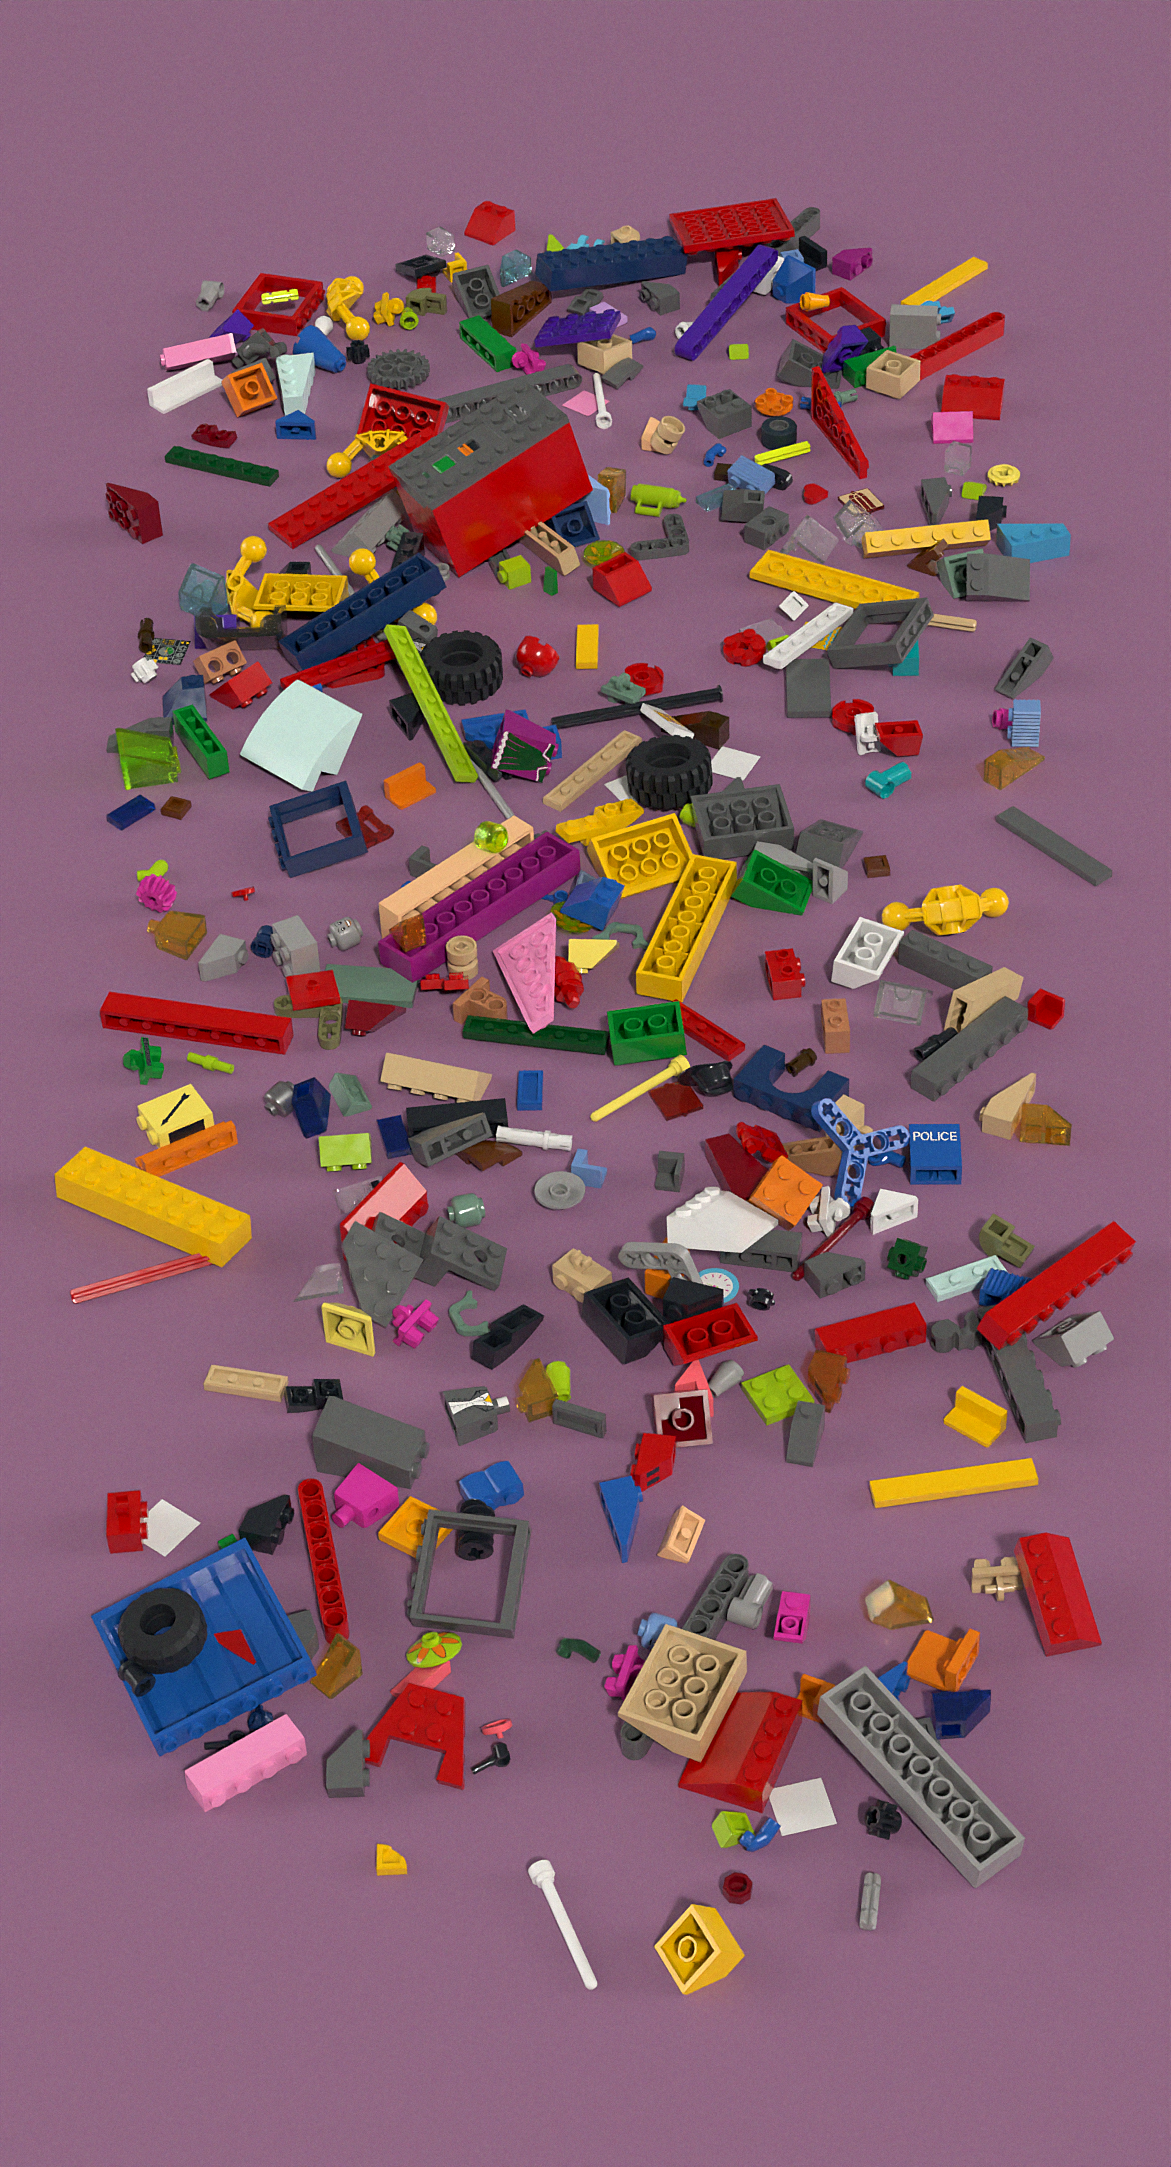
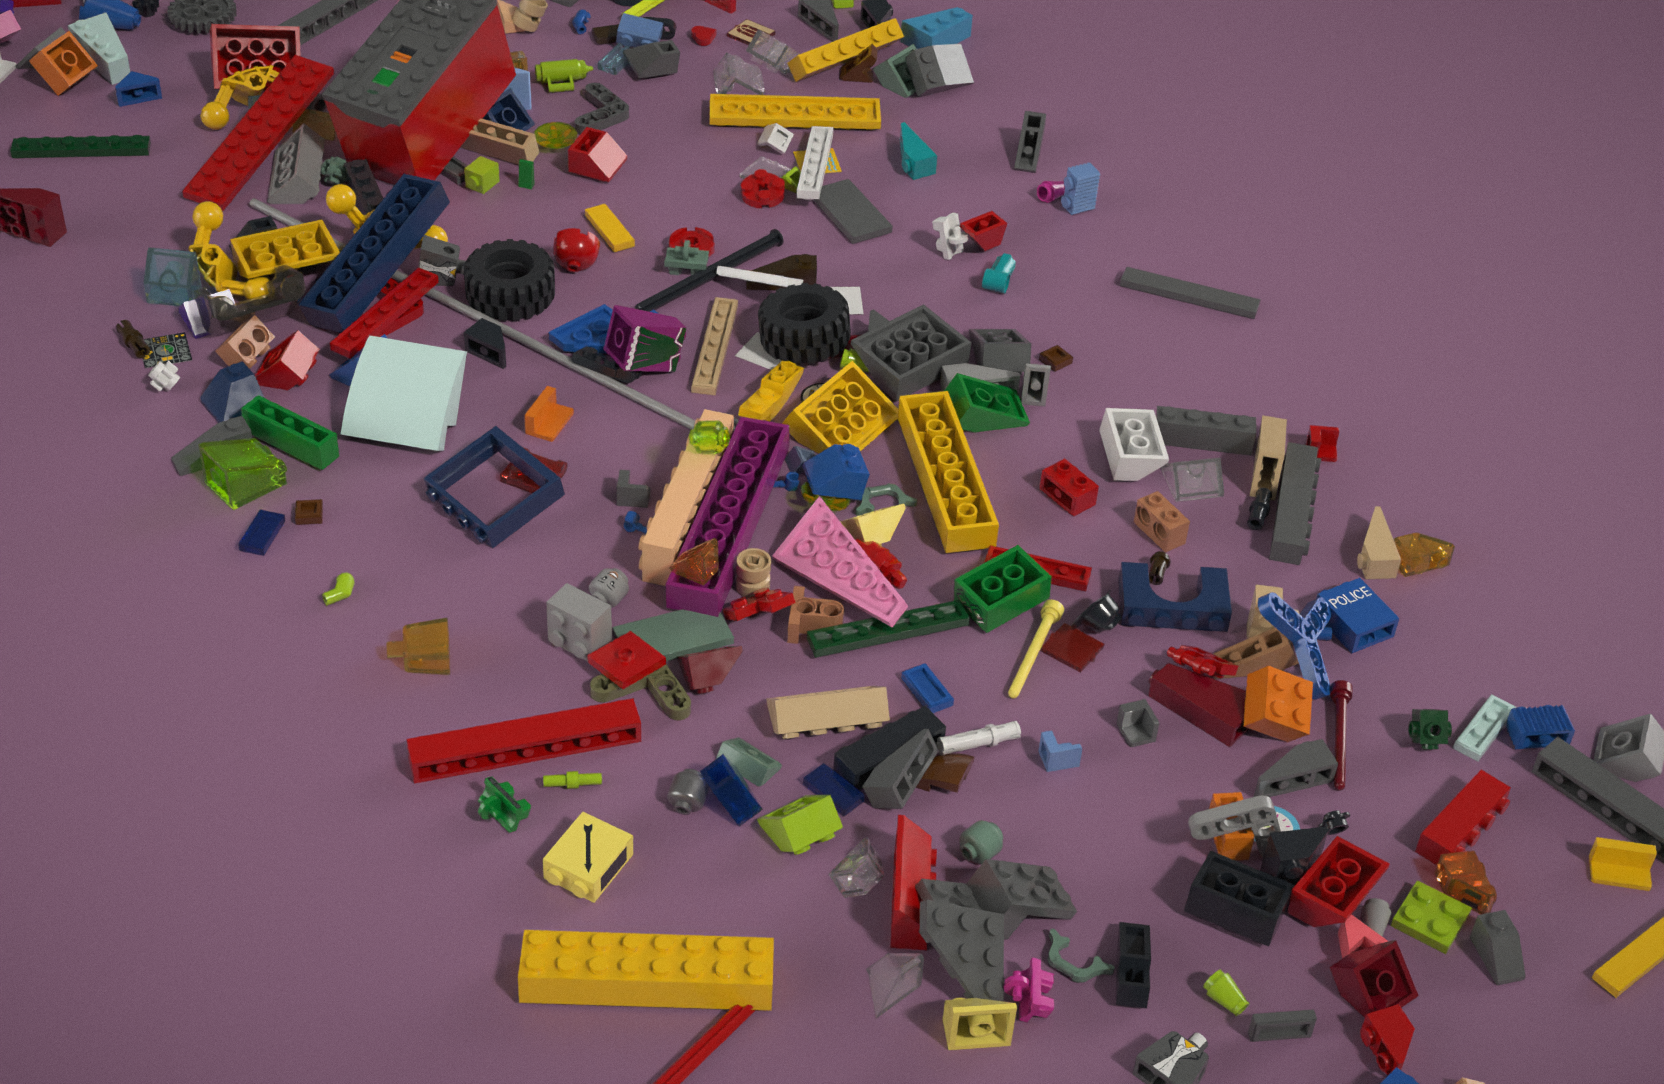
camera: 35 degrees left, 0 degrees up
(156, 893) = (370, 610): dark pink gear -> none
(188, 1149) = (630, 892): orange fence -> none
(212, 436) = (43, 119): dark red slope -> none
(223, 958) = (498, 656): light grey slope -> none
(244, 892) = (460, 578): red piece -> none
(255, 346) = (37, 20): dark grey torso -> none
(262, 943) = (528, 624): dark blue wheel -> none
(431, 704) = (513, 323): lime plate -> none
(536, 1393) = (1218, 1014): clear yellow slope -> none
(559, 1190) = (1052, 783): light grey dish -> none
(579, 1274) = (1153, 868): tan brick -> none
(718, 1222) = (1252, 760): white slope -> none
(766, 528) = (691, 75): dark grey brick -> none
(829, 1212) = (1320, 711): white hips -> none
(833, 1273) = (1373, 770): dark grey slope -> none
(844, 713) = (907, 230): red plate -> none
(892, 1209) = (1367, 684): white slope -> none
(916, 617) = (890, 163): dark grey window -> none
(947, 1334) = (1533, 786): dark grey leg -> none
(948, 909) = (1174, 376): yellow piece -> none
(953, 623) = (920, 119): tan axle -> none
(999, 1240) = (1492, 679): olive brick -> none
(1009, 764) = (1091, 233): clear yellow slope -> none
(1056, 1286) = (1587, 706): red brick -> none

